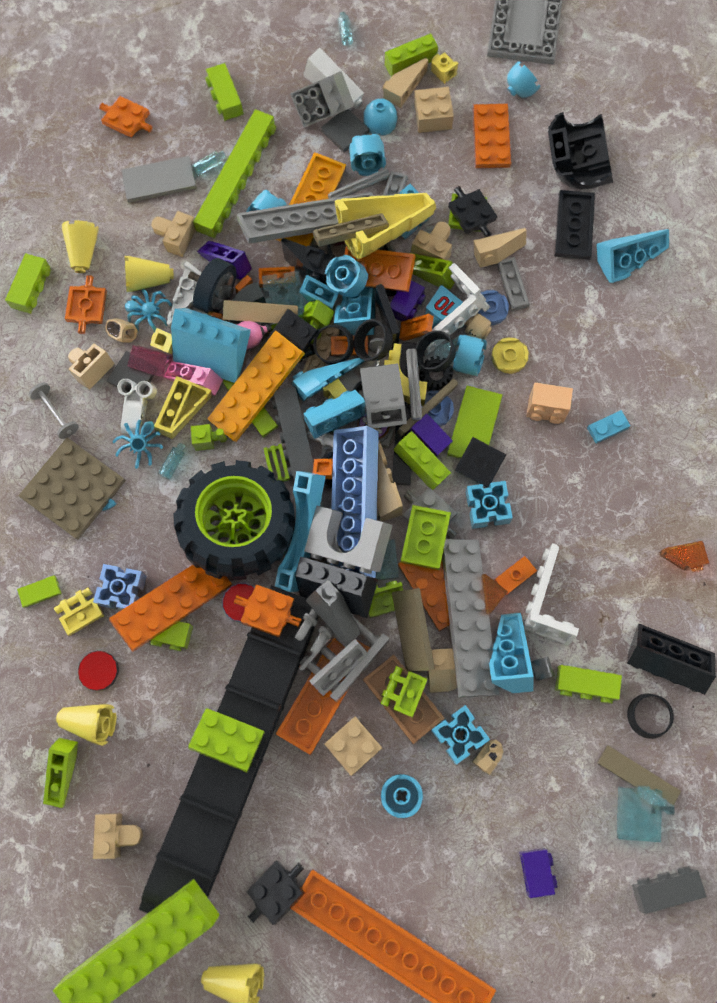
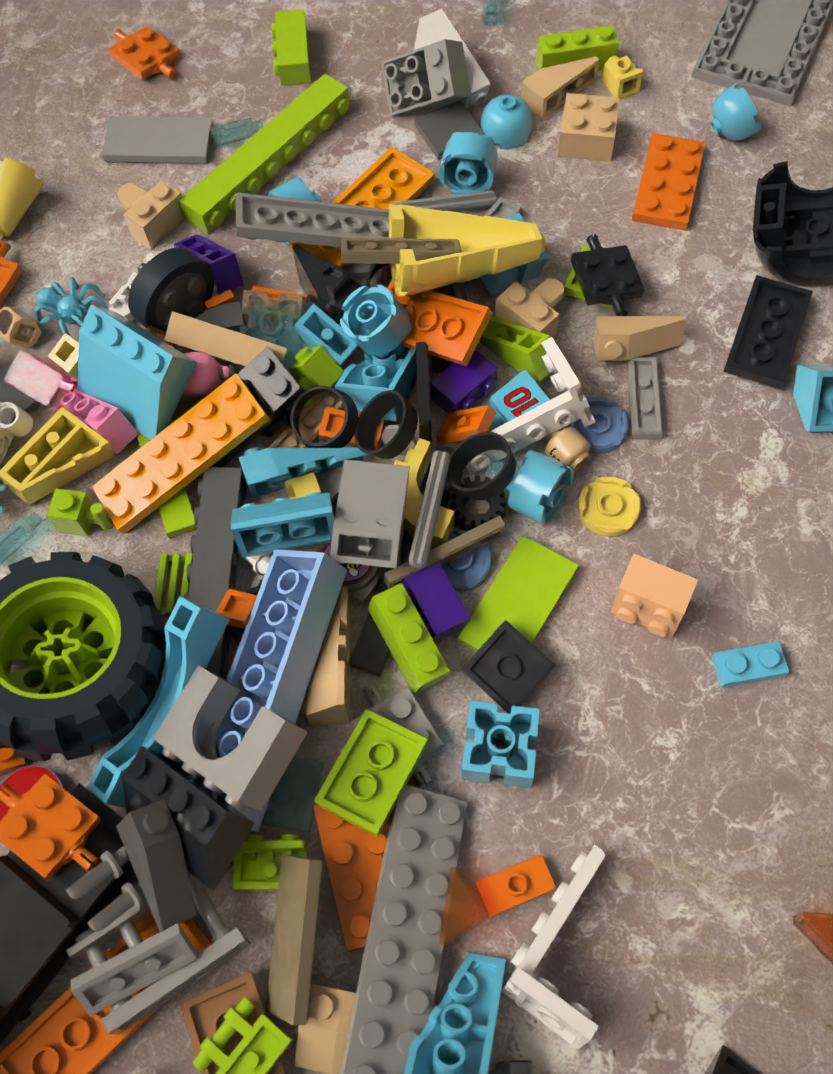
camera: 15 degrees right, 10 degrees down
(145, 273) = (81, 255): light yellow cone -> none

